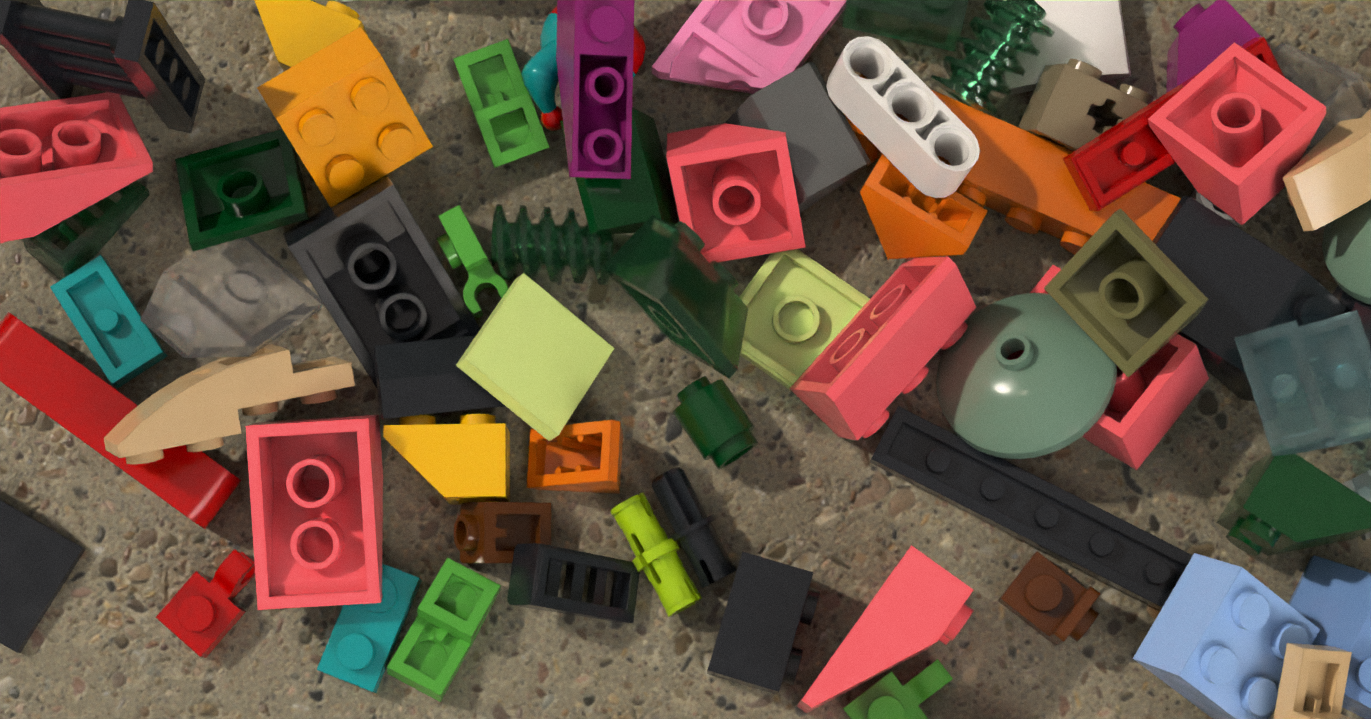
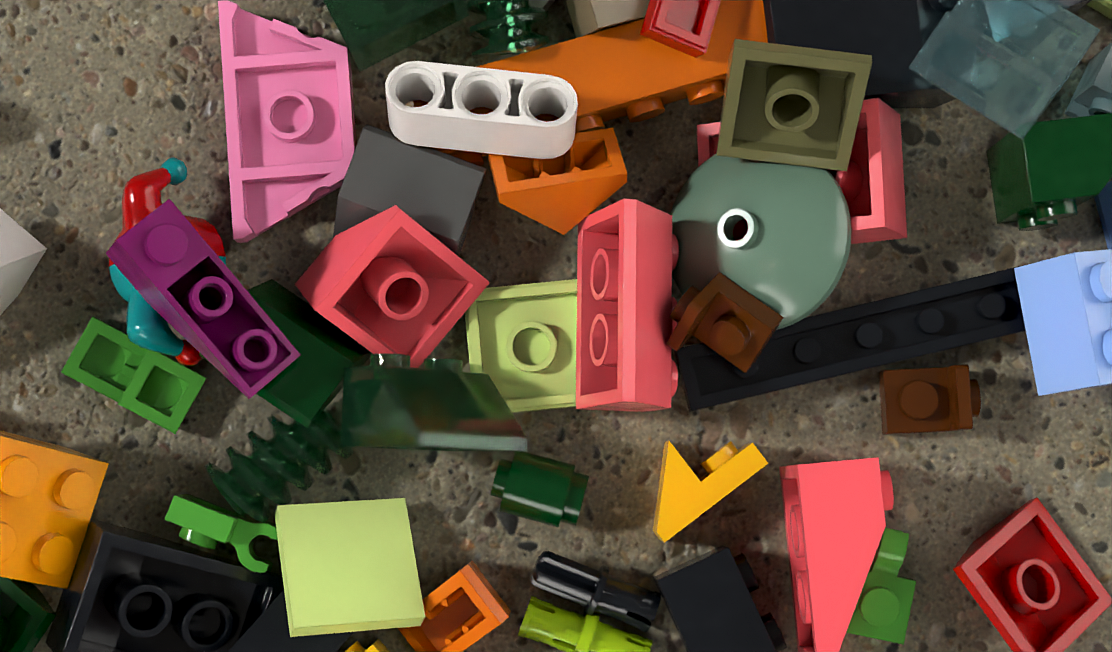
camera: 45 degrees left, 5 degrees up
(814, 518) = (686, 497): none -> yellow slope
(949, 410) = (725, 321): none -> reddish brown bracket

